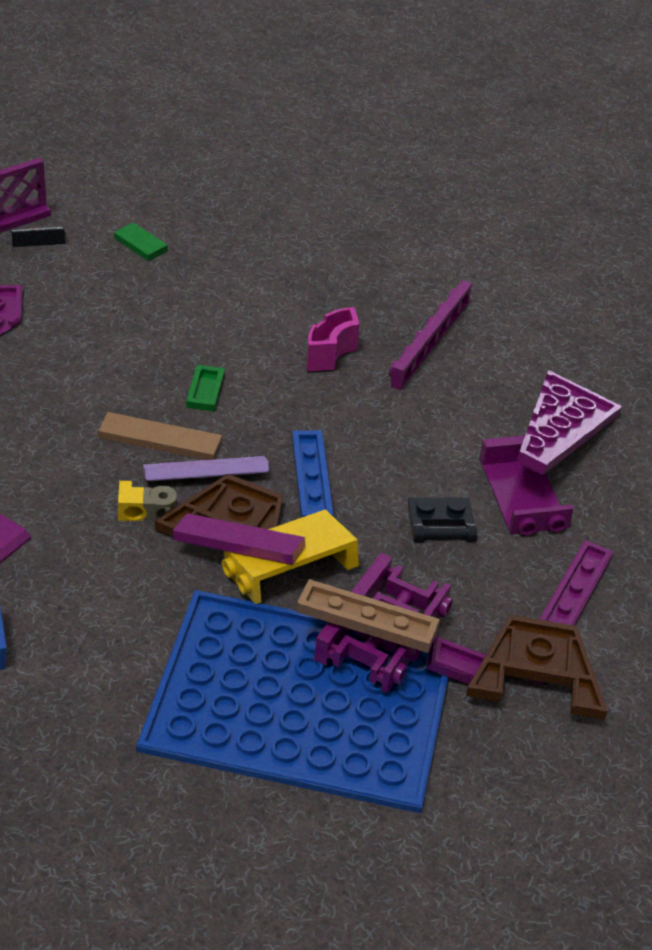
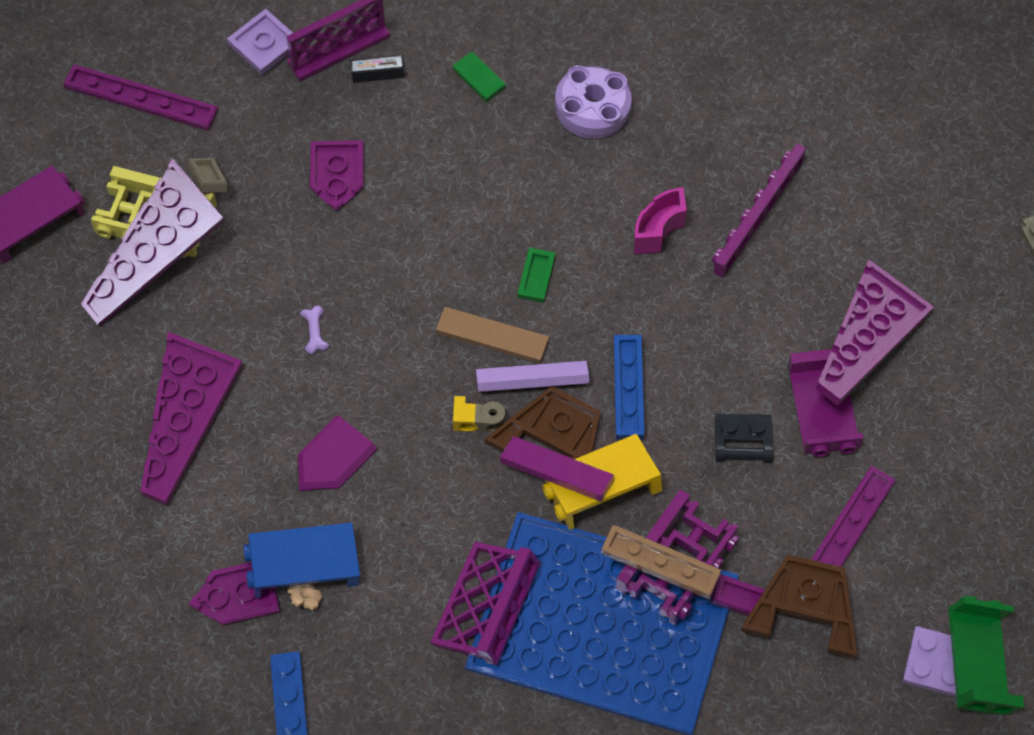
camera: 10 degrees right, 20 degrees up
(182, 677) = (507, 602): none -> magenta fence
(255, 255) = (593, 118): none -> lavender piece

